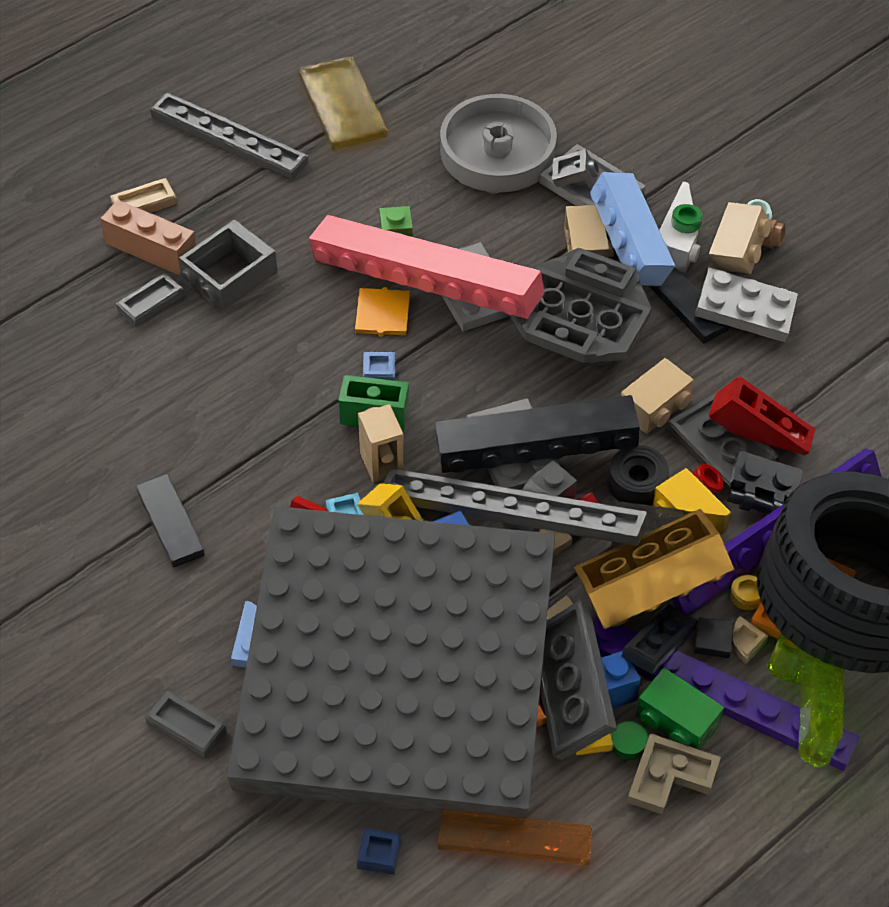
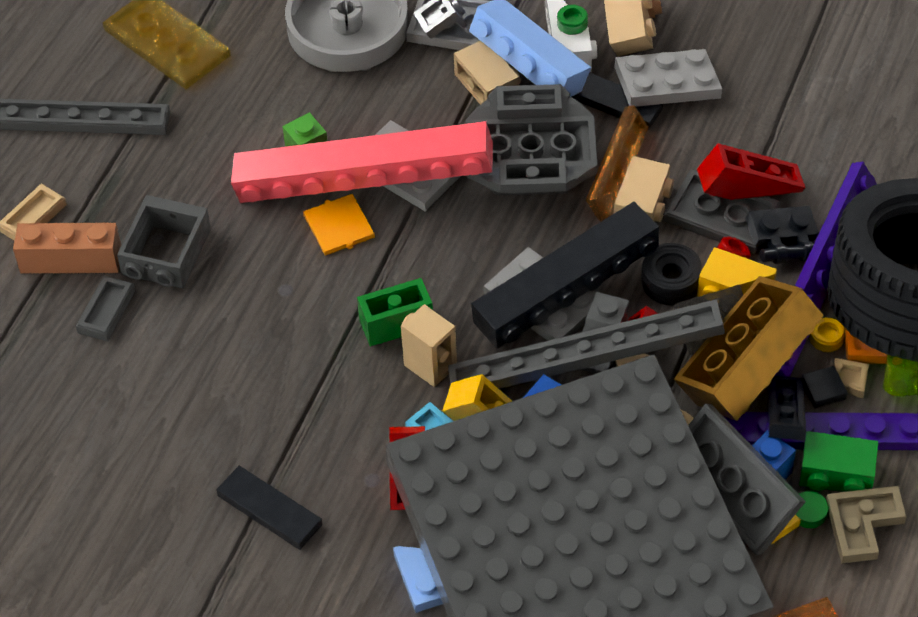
camera: 25 degrees left, 0 degrees up
(379, 365) = (370, 276): medium blue tile -> none
(669, 344) = (613, 168): none -> clear orange tile

